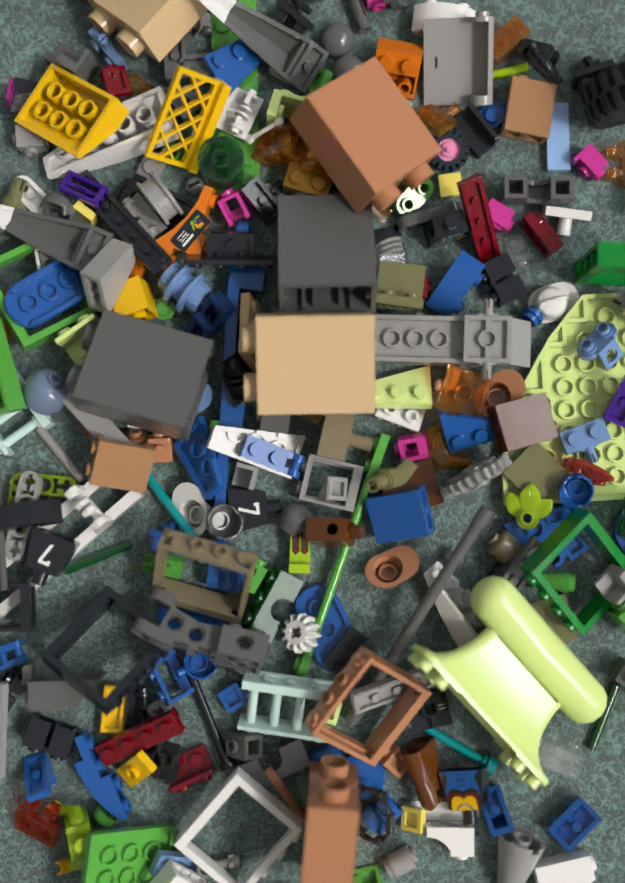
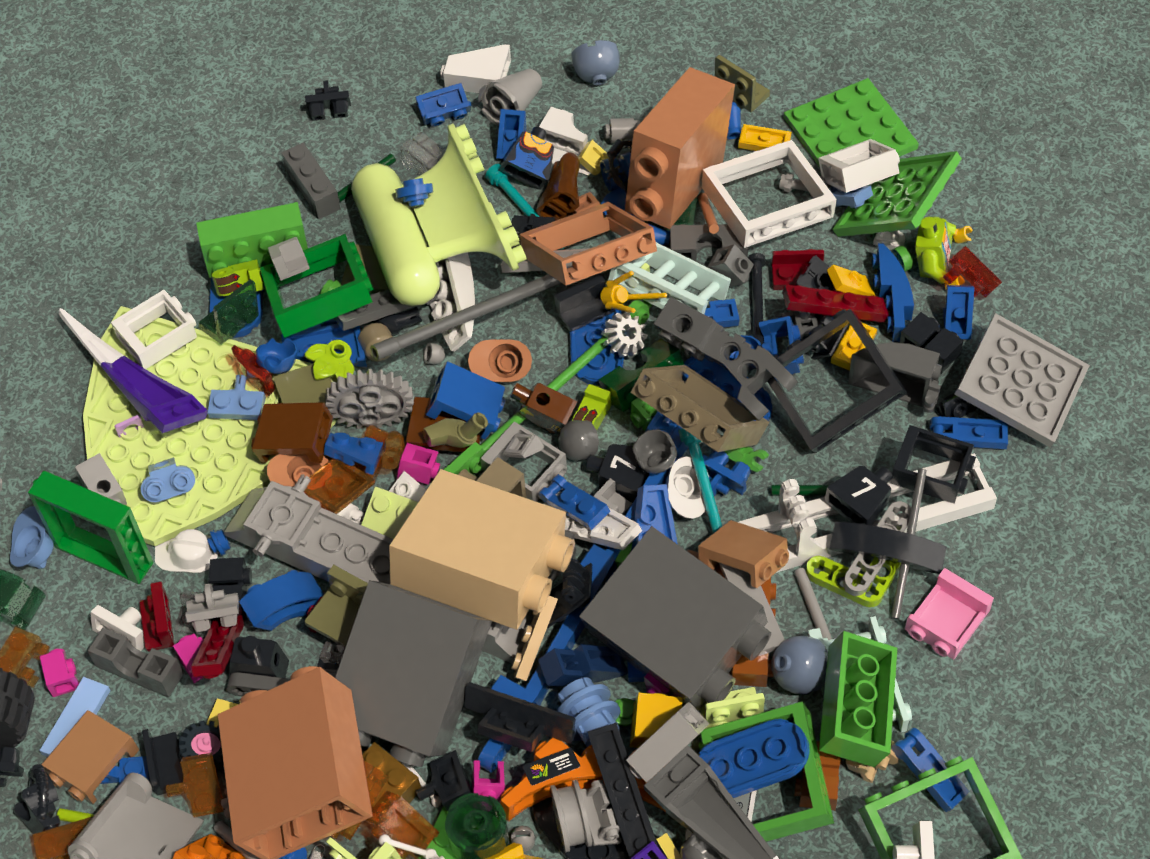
camera: 150 degrees left, 30 degrees down
(323, 669) = (615, 295): none -> yellow plant
(500, 248) = (212, 605): none -> light grey hips
(538, 689) = (414, 191): none -> blue plate

